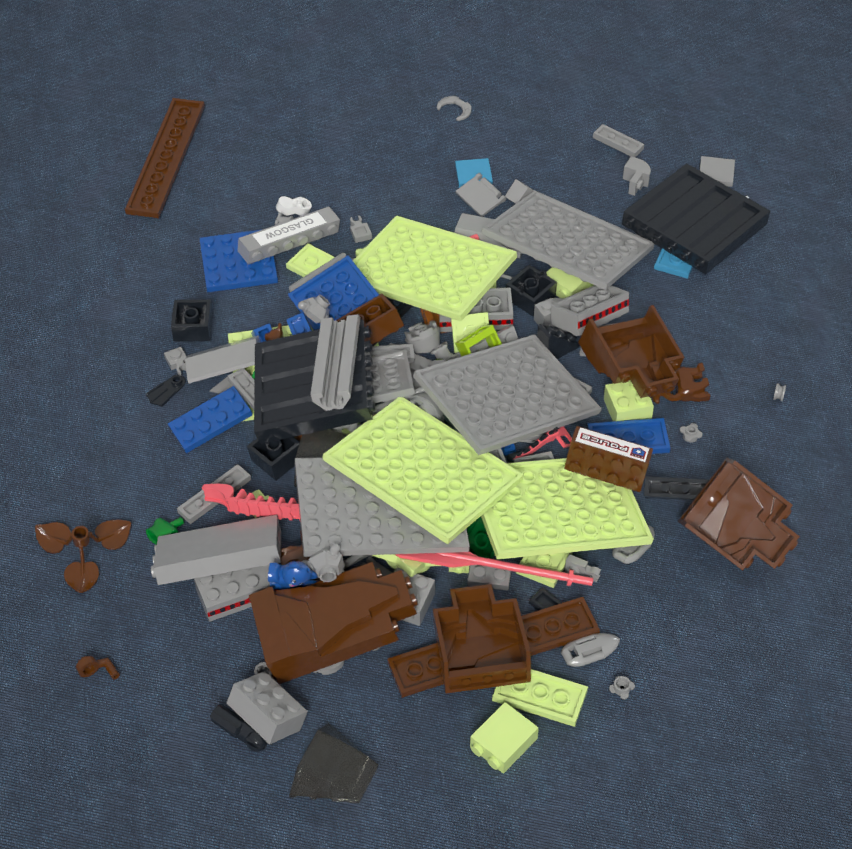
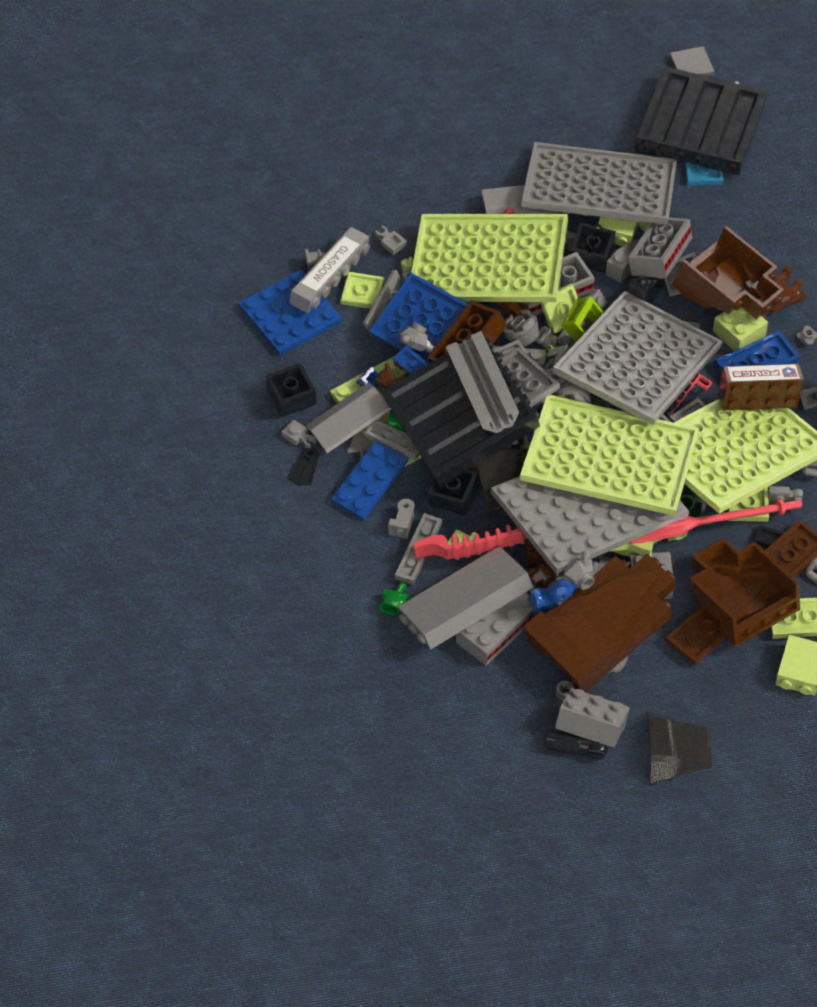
camera: 25 degrees left, 5 degrees up
(85, 574) = (346, 620): reddish brown plant -> none
(89, 665) = (408, 744): reddish brown plate -> none
(165, 158) = (147, 228): reddish brown plate -> none
(217, 464) = (401, 525): none -> light grey leg
(293, 206) = (313, 236): white piece -> none
(465, 106) = (394, 69): light grey piece -> none
(469, 168) = (463, 142): dark azure tile -> none
(480, 195) = (484, 164): light grey piece -> none
(487, 575) = (708, 533): light grey plate -> none
(518, 191) = (521, 149): light grey brick -> none
(618, 140) = (583, 62): light grey plate -> none
(637, 173) = (623, 91): light grey brick -> none

